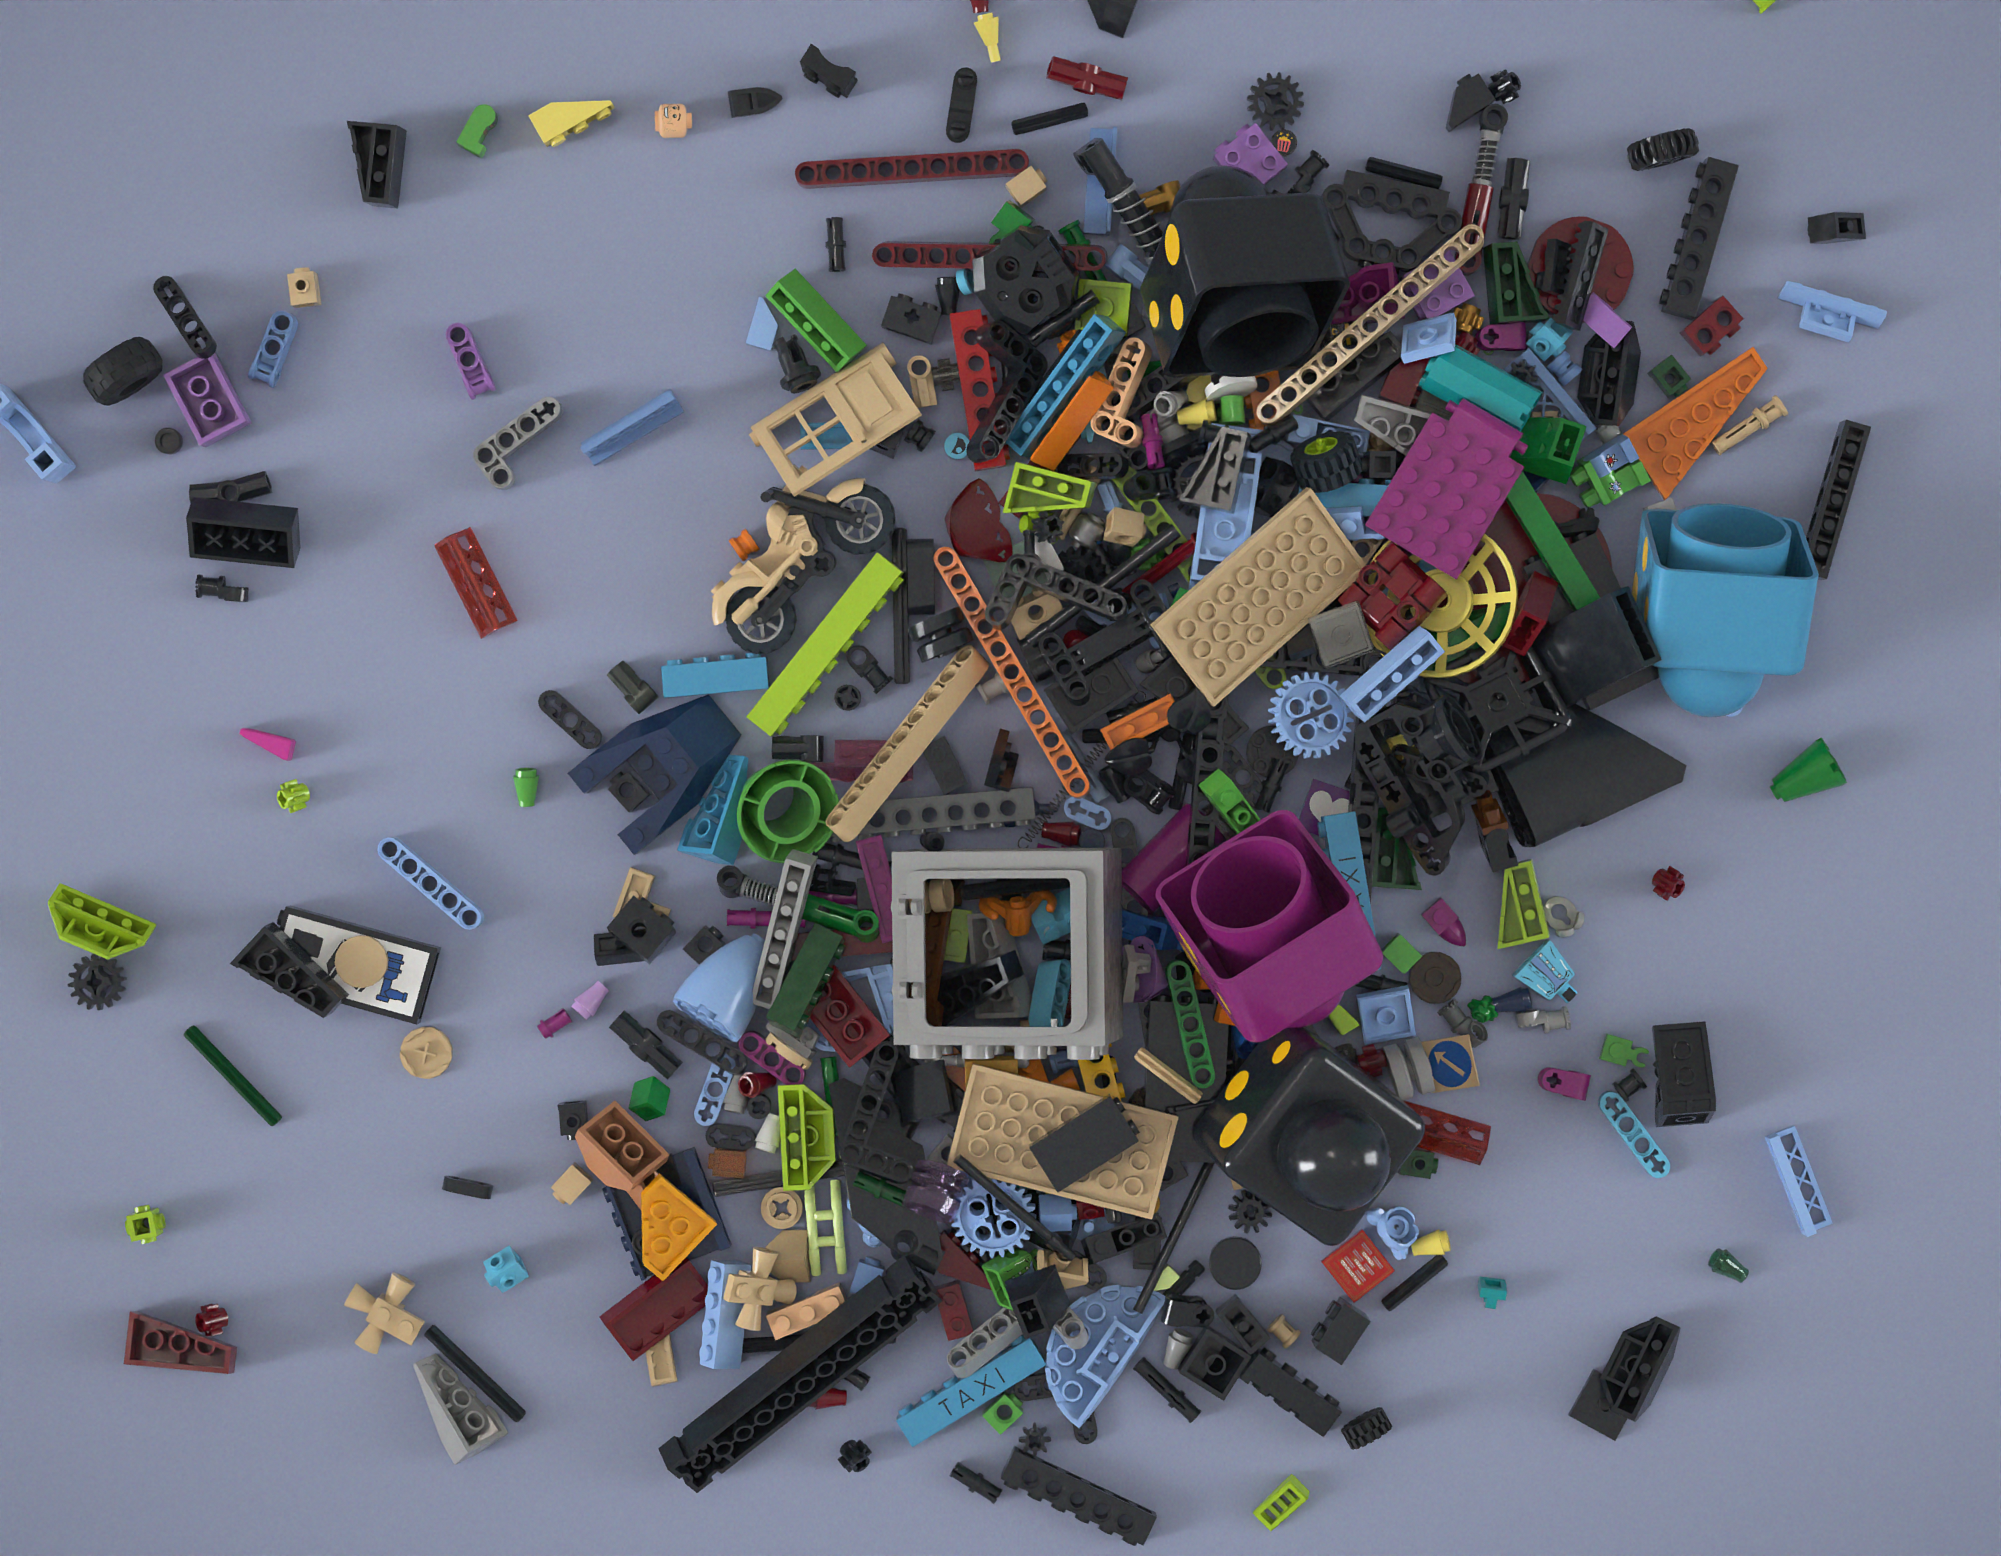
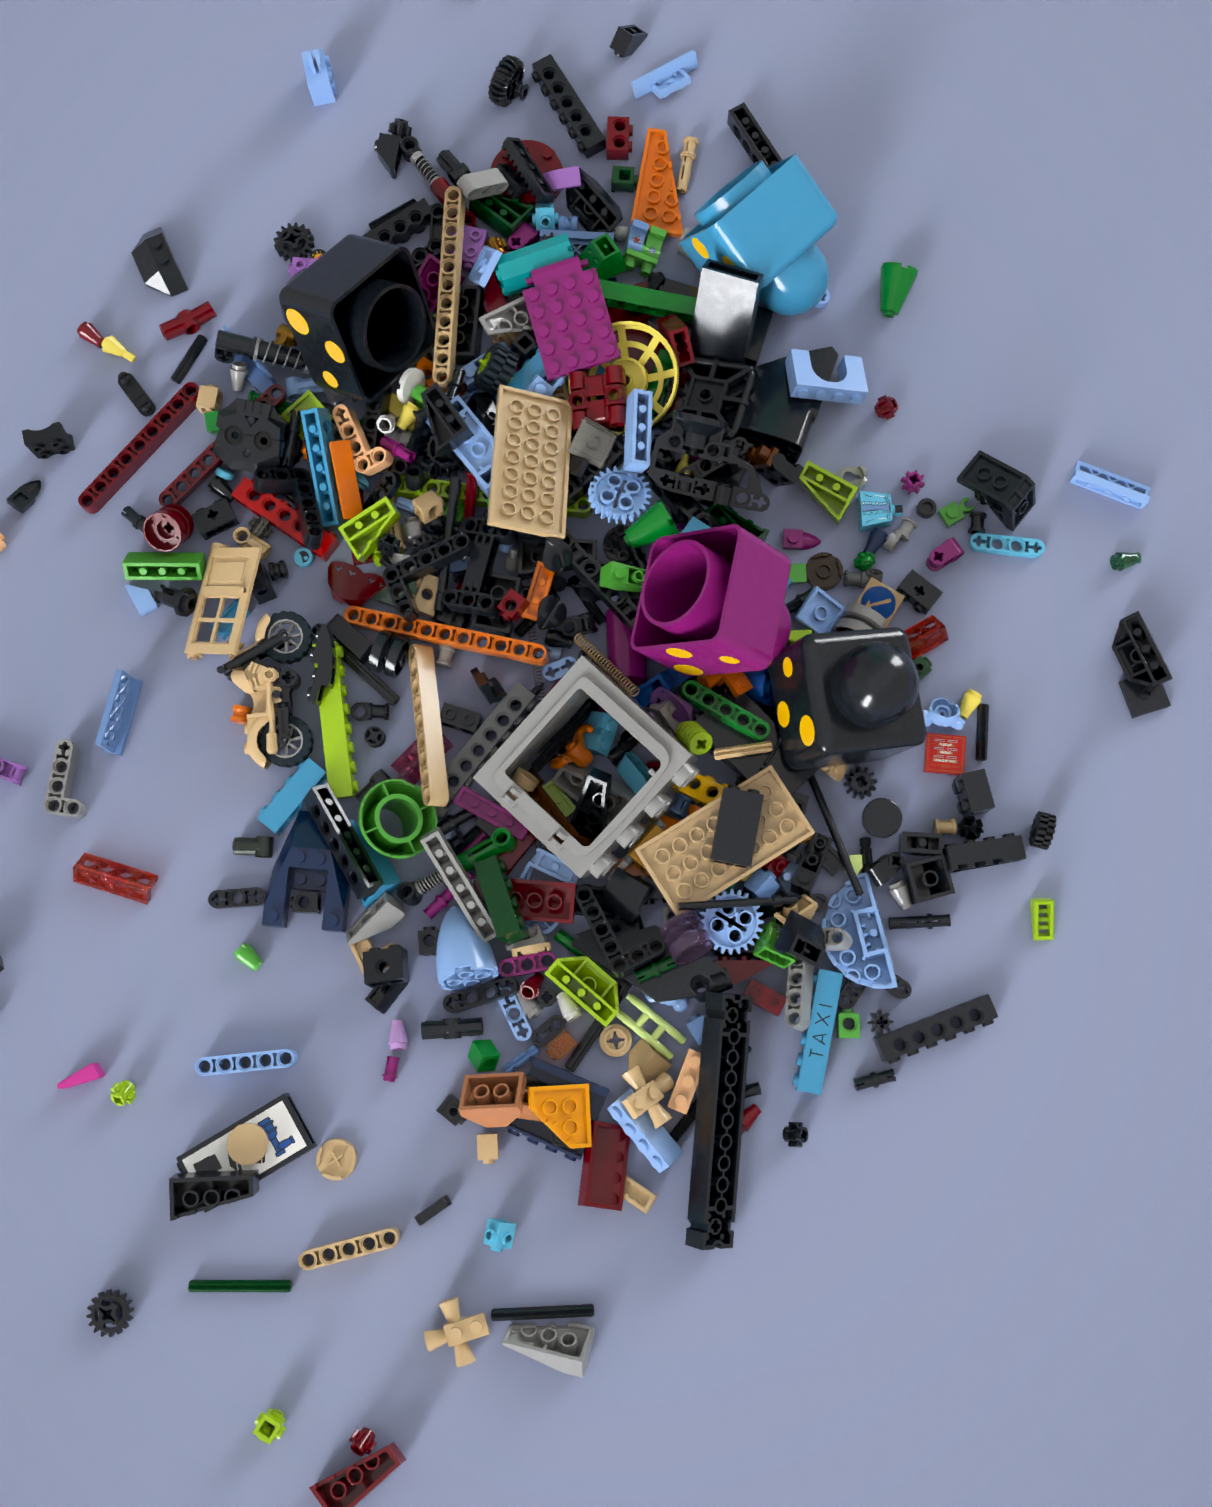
camera: 40 degrees left, 10 degrees down
(96, 924) = (75, 1279): lime wedge -> none
(348, 1143) = (339, 1248): none -> tan beam
(677, 874) = (378, 918): none -> light grey slope
(679, 1136) = (521, 1059): none -> medium blue axle
(718, 773) = (343, 841): none -> black brick
(856, 288) = (168, 527): none -> dark red wheel
(875, 580) = (325, 657): none -> black slope
(1081, 190) = (238, 374): none -> light grey cone
(1112, 715) = (513, 597): none -> dark red brick
(1128, 886) = (600, 664): none -> tan piece
(1134, 1019) = (694, 737): none -> lime piece
(1305, 1357) = (970, 828): none -> black gear
(1306, 780) = (650, 526): none -> green cone
(1492, 1290) = (1025, 694): teal tile -> none
(1508, 1105) = (929, 593): none -> black brick
(1515, 250) = (482, 184): none -> light grey beam
(1599, 1019) = (926, 508): none -> black tile
(1609, 786) = (806, 384): none -> light blue arch
(1619, 984) = (908, 486): none -> magenta gear
(1670, 170) = (521, 91): none -> black bush

